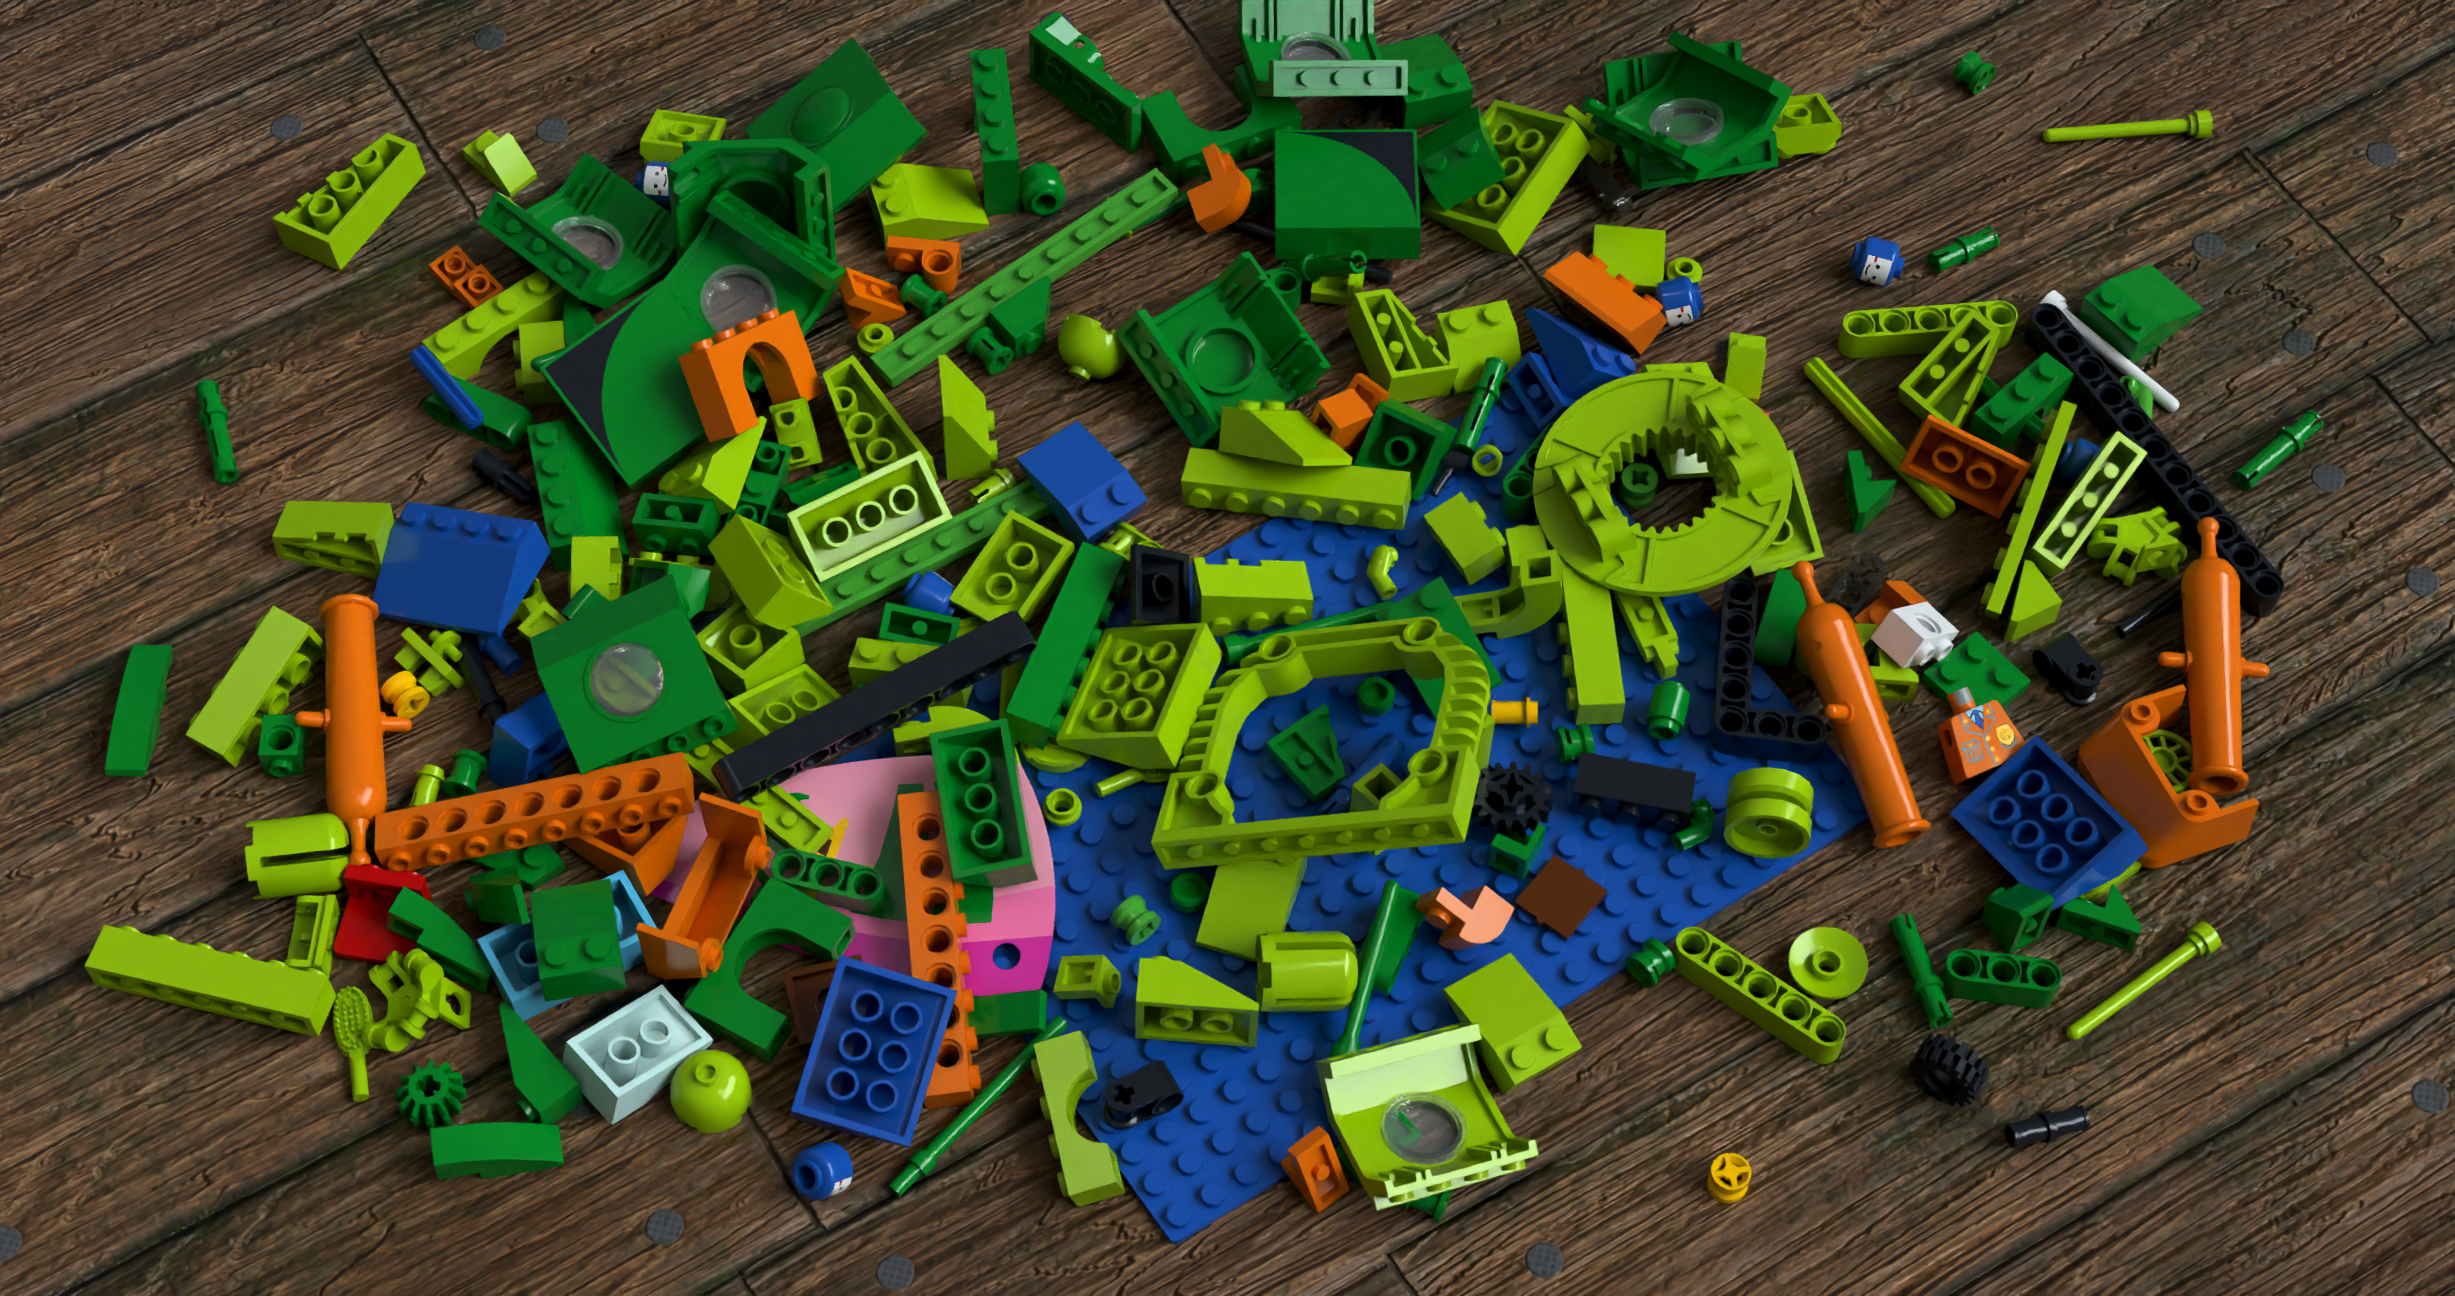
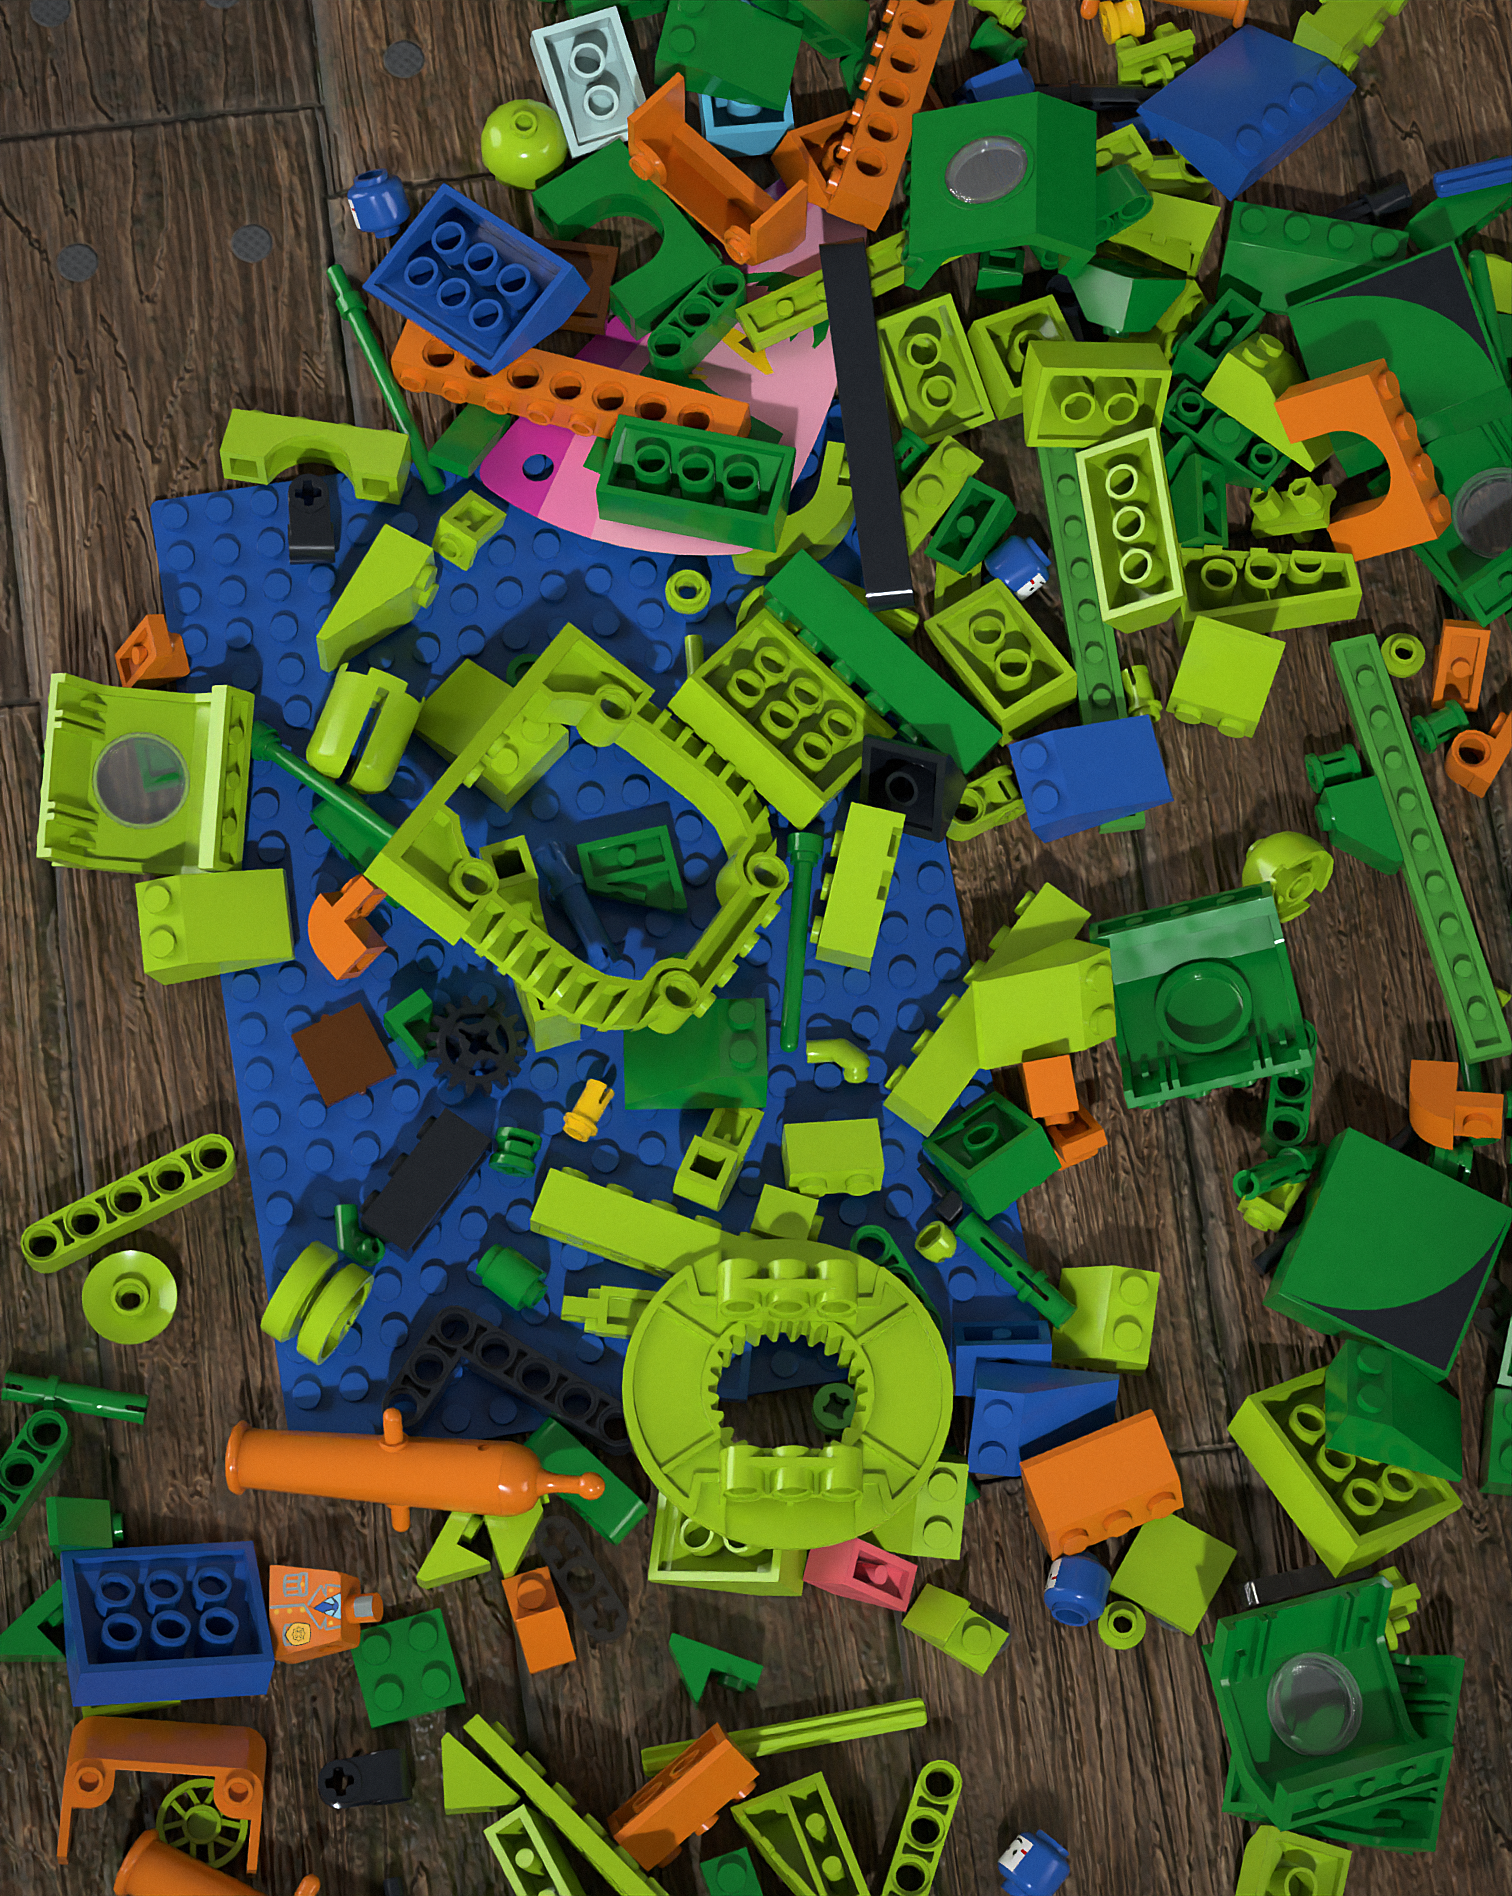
camera: 110 degrees right, 15 degrees up
(1135, 919) = (514, 602): bright green wheel -> none
(1397, 350) = (1137, 1212): lime wedge -> none
(1650, 962) = (221, 1109): green wheel -> none
(1915, 635) = (469, 1582): white brick -> none

